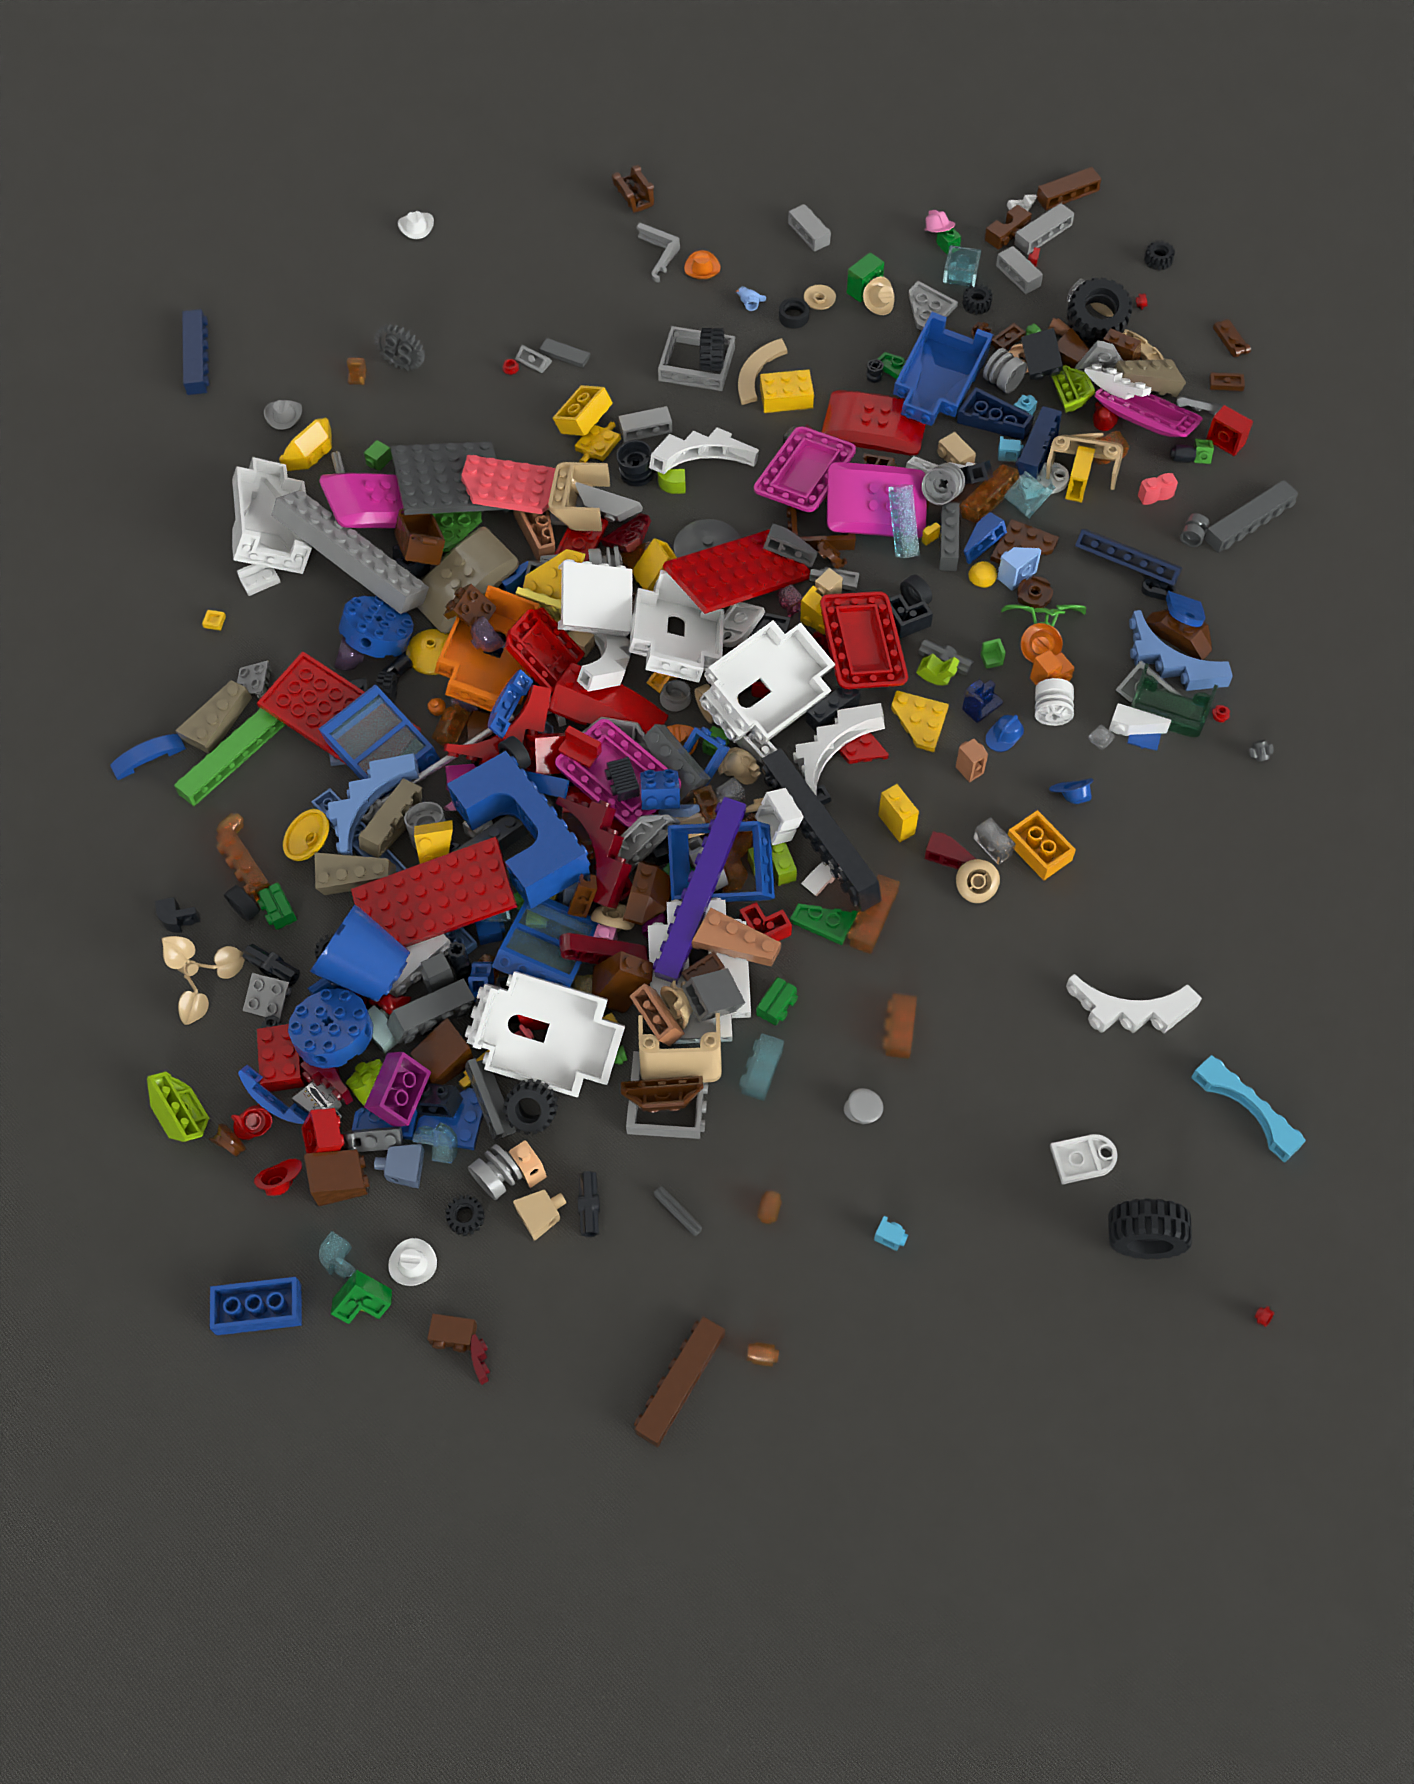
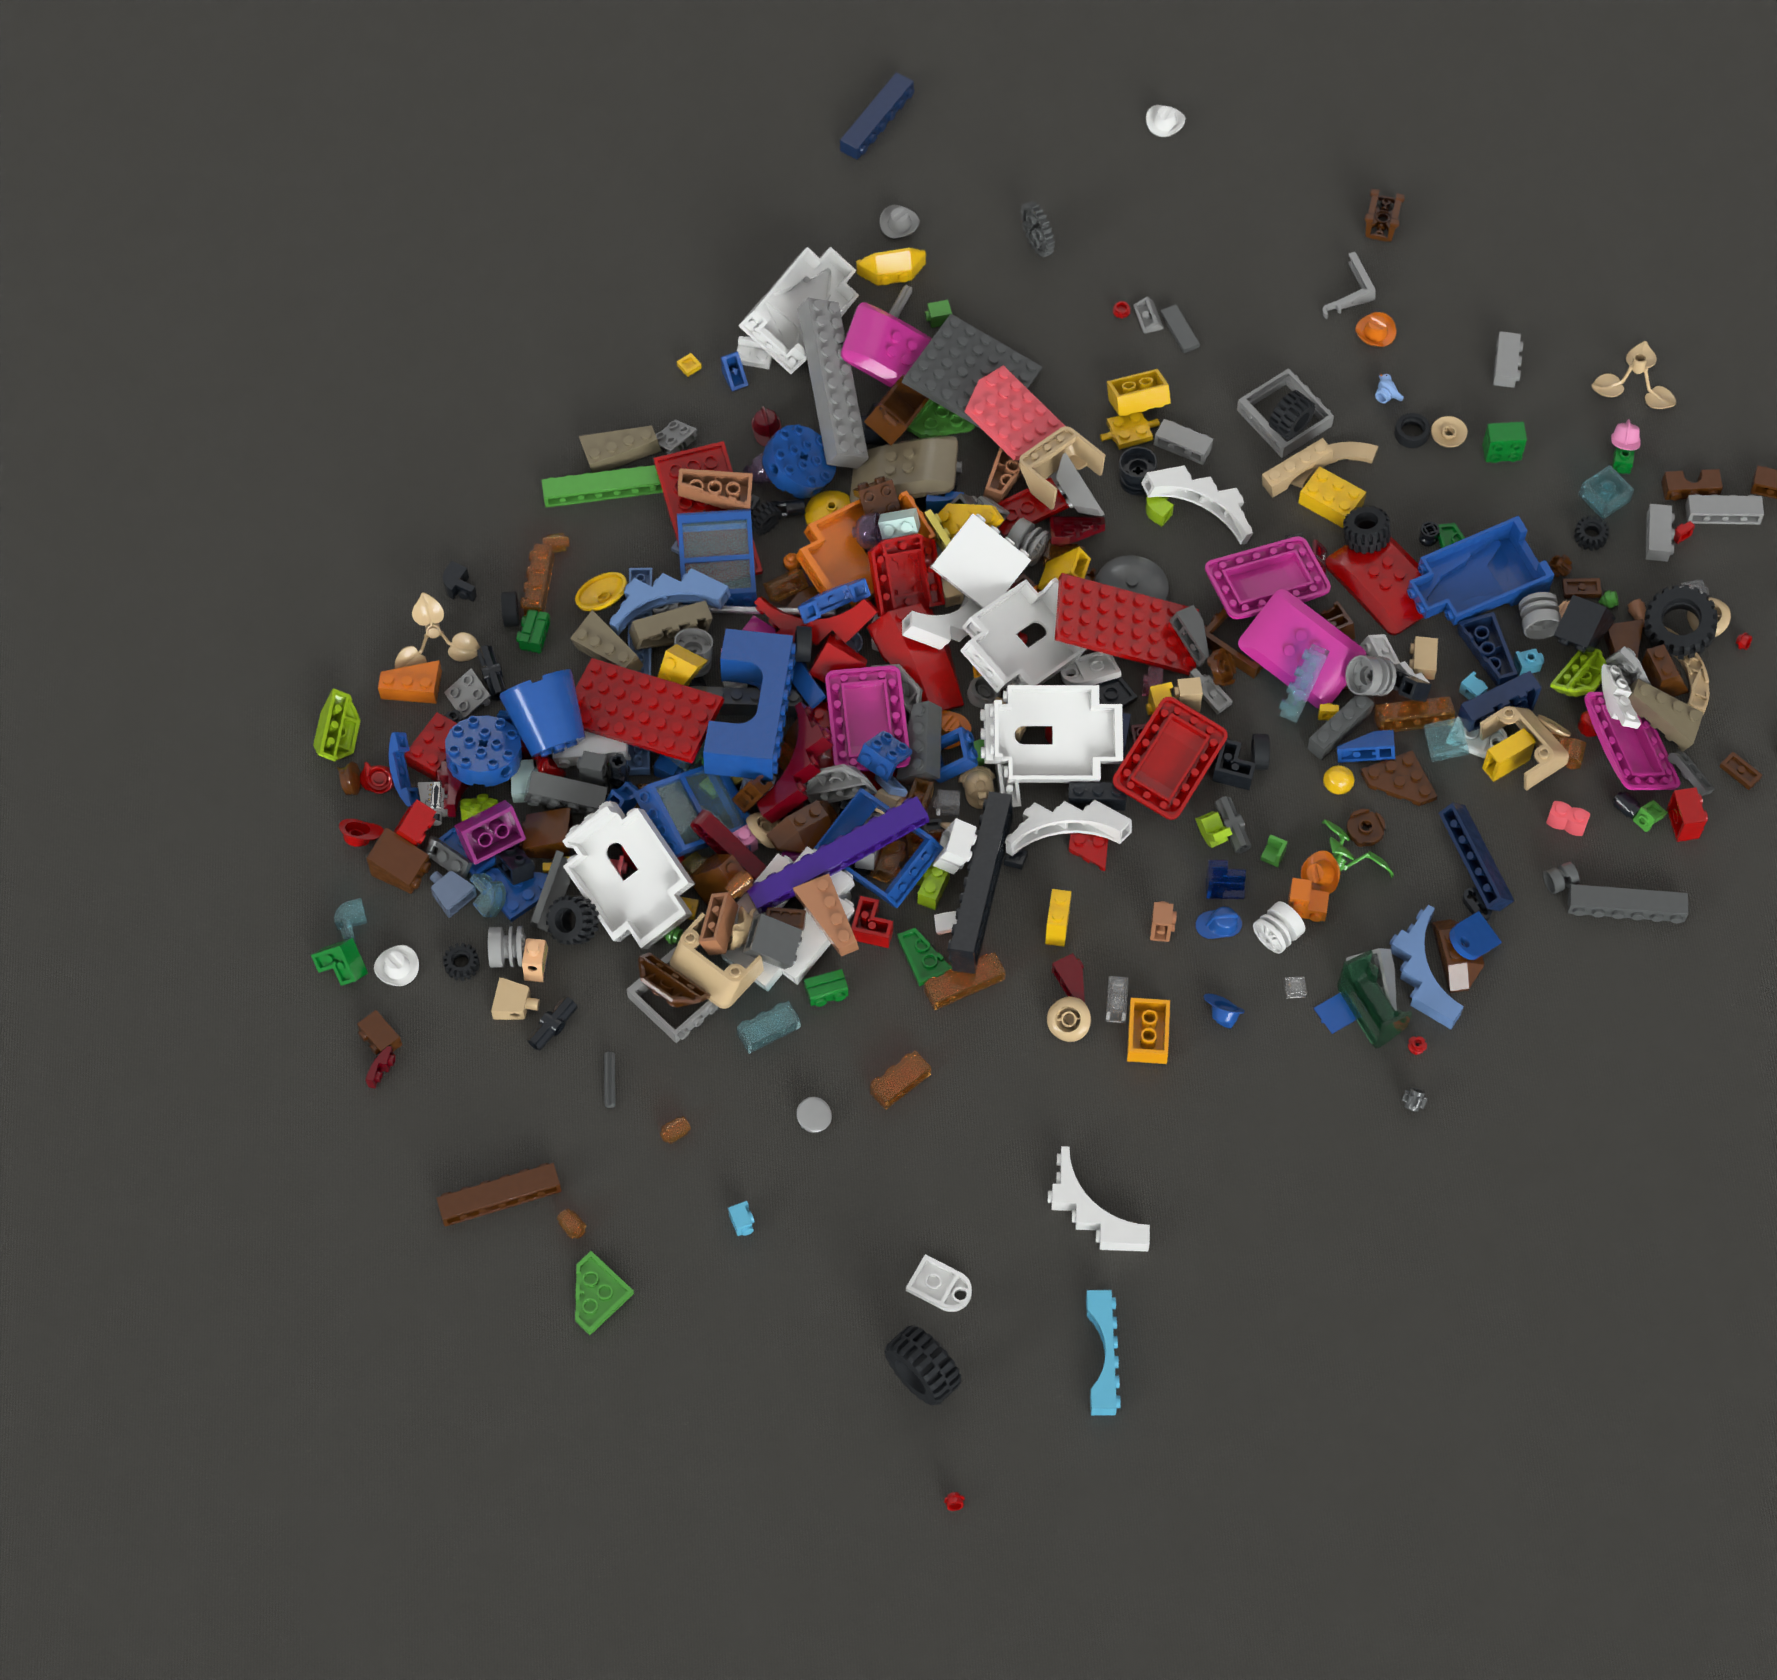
camera: 40 degrees right, 0 degrees up
(145, 752) = (546, 438): blue slope -> none
(209, 1023) = (411, 683): none -> orange wedge
(255, 600) = (733, 371): none -> blue slope
(255, 1306) = (268, 909): blue brick -> none
(320, 624) = (765, 425): none -> dark red piece
(332, 688) = (716, 488): none -> nougat wedge
(357, 370) = (992, 226): clear orange panel -> none
(505, 613) = (899, 523): none -> light aqua brick
(580, 747) = (854, 676): red panel -> none
(623, 779) = (862, 724): black brick -> none
(647, 970) = (739, 884): none -> clear orange brick
(739, 397) = (1280, 477): none -> tan arch
(835, 393) = (1367, 529): none -> black tyre
(837, 1392) = (597, 1293): none -> bright green plate
(879, 296) = (1501, 468): tan hat -> none
(899, 171) = (1639, 360): none -> tan plant
(920, 718) = (1162, 859): yellow plate -> none
(927, 300) = (1542, 508): light grey plate -> none
(1018, 565) = (1370, 793): light blue slope -> none
(1026, 203) = (1732, 474): white slope -> none
(1133, 721) = (1333, 995): white slope -> none

